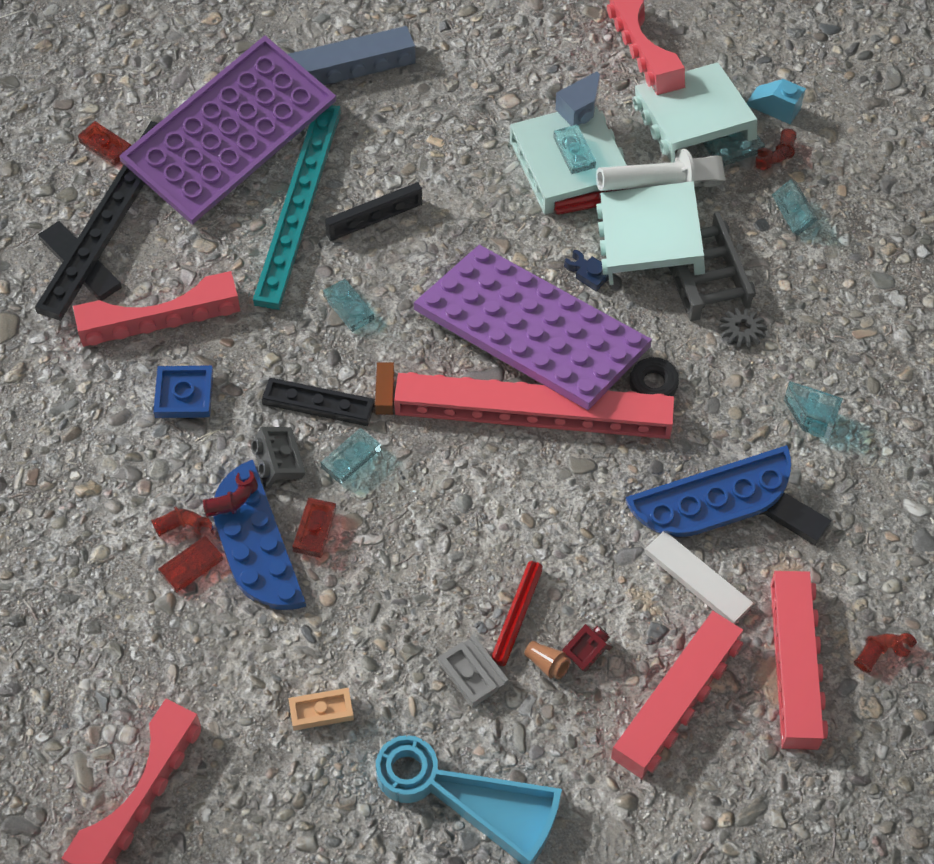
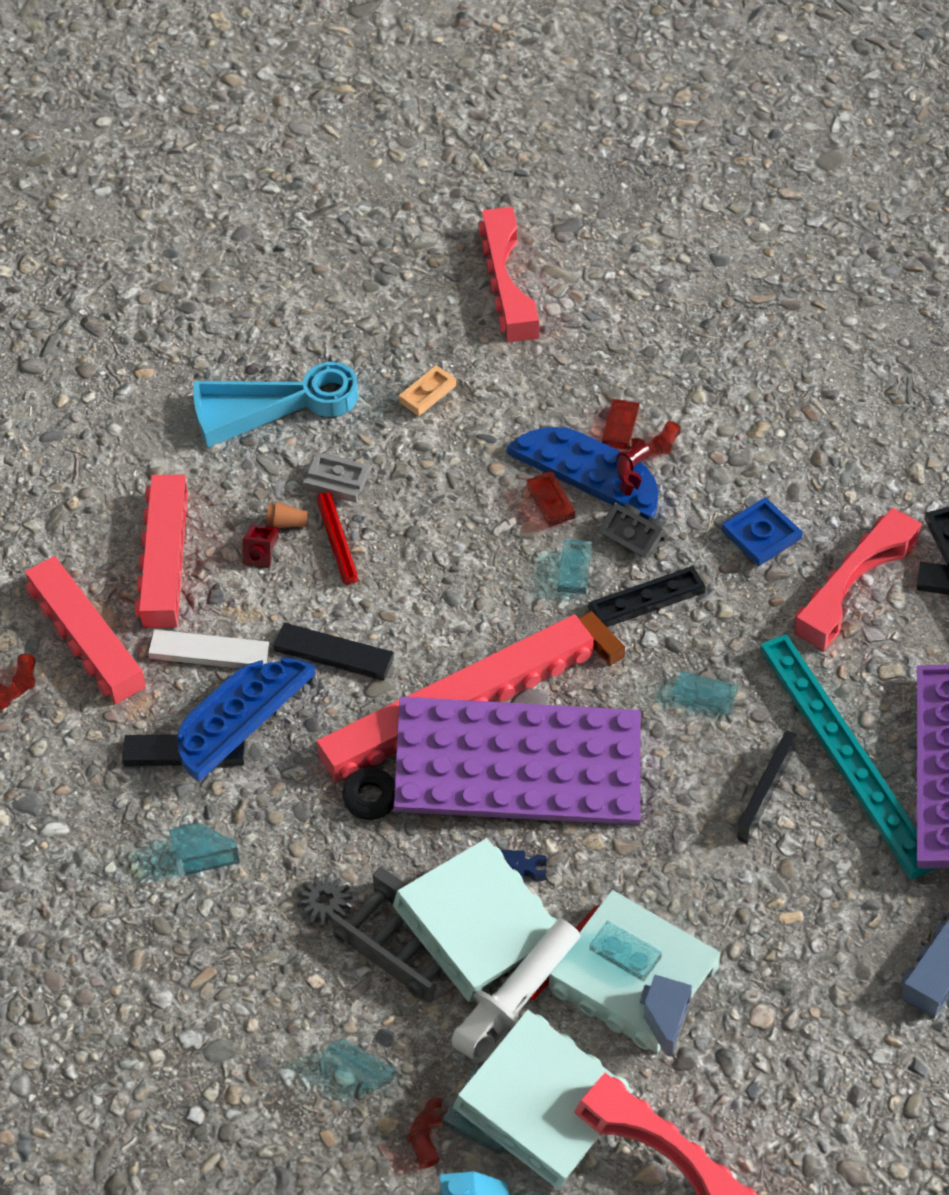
camera: 145 degrees right, 5 degrees down
(597, 512) = (334, 651): none -> black tile

